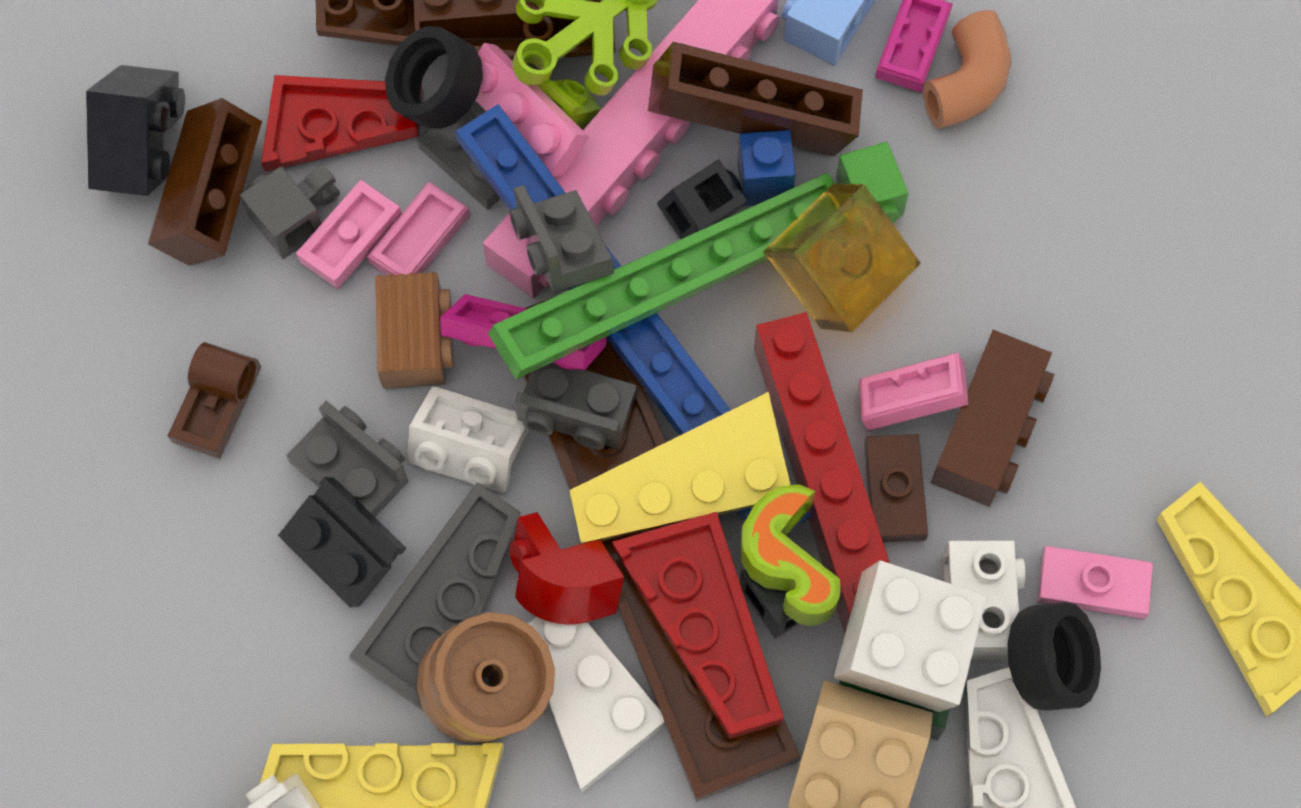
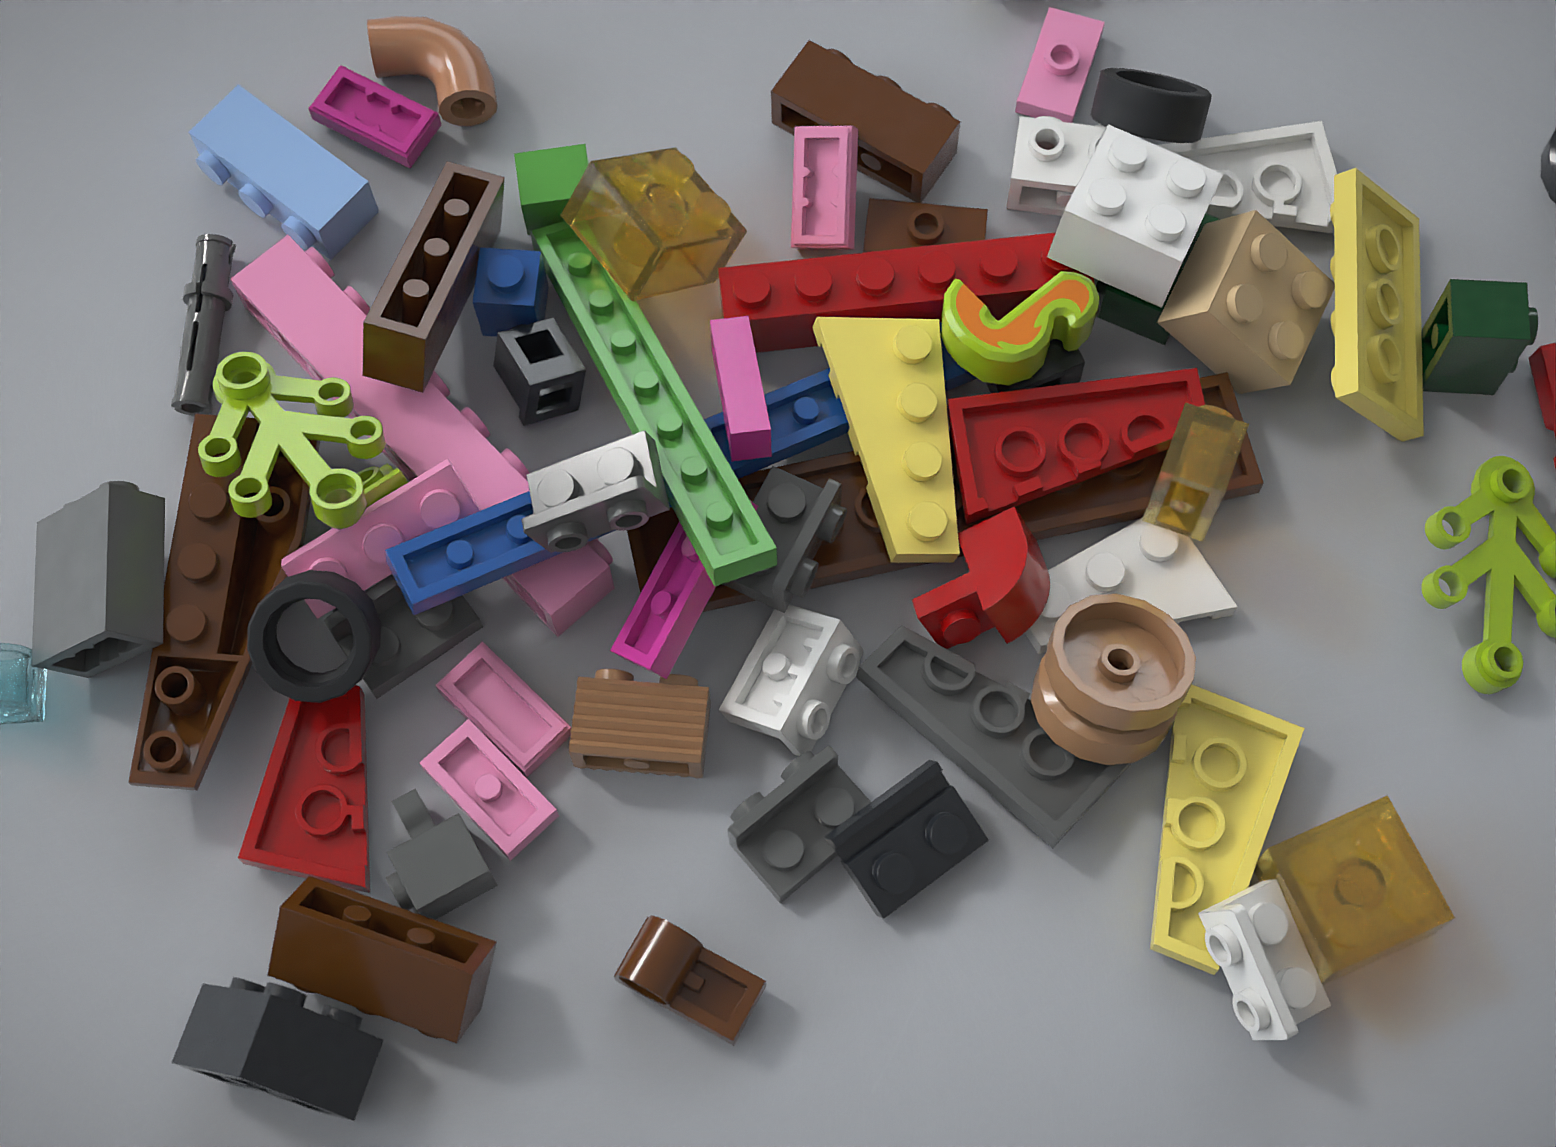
camera: 80 degrees left, 0 degrees up
(673, 717) = (1196, 470): none -> clear yellow brick
(693, 343) = (740, 388): none -> piece

